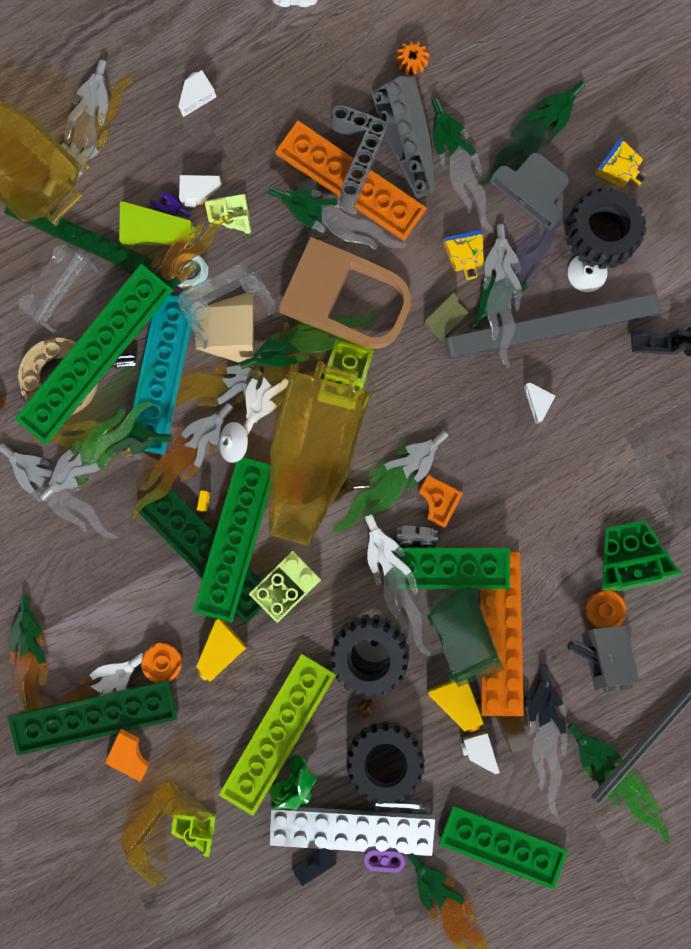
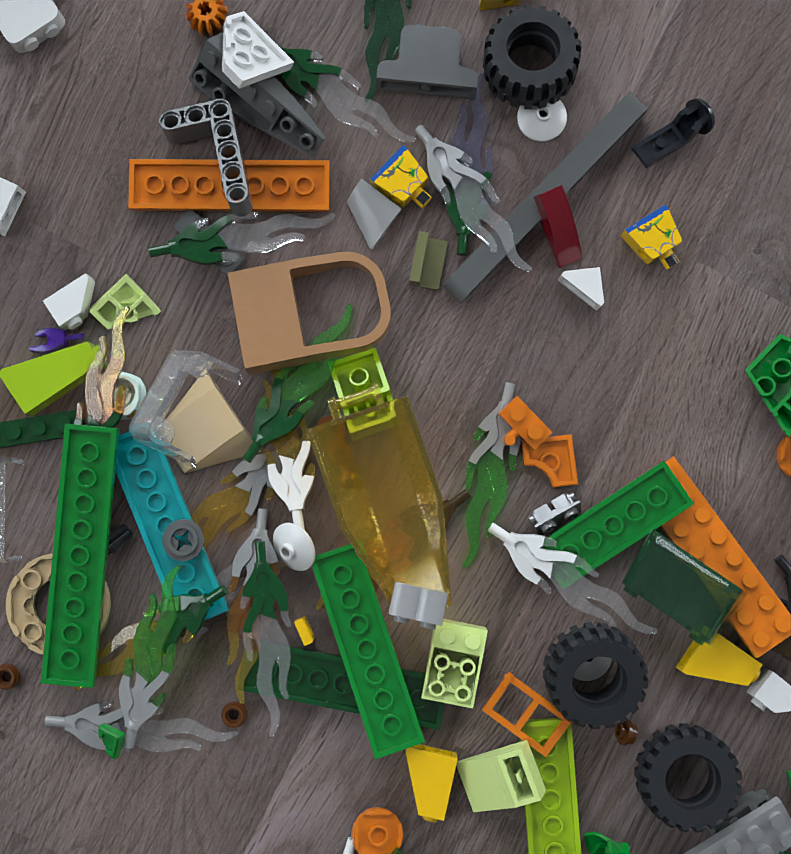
camera: 40 degrees left, 0 degrees up
(35, 486) = (112, 739): none -> green tile
(116, 524) = (230, 721): none -> reddish brown plate
(156, 388) = (171, 543): none -> dark grey gear
(179, 480) = (267, 632): none -> piece
(265, 680) = (502, 778): none -> yellowish green slope
(287, 530) = (418, 604): none -> light grey brick
(313, 621) = (516, 729): none -> orange window
(422, 102) = (250, 52): none -> white plate
(431, 260) = (372, 212): none -> light grey slope
(436, 464) = (523, 424): none -> orange plate
(547, 351) = (559, 225): none -> dark red slope
(606, 401) = (654, 237): none -> torso

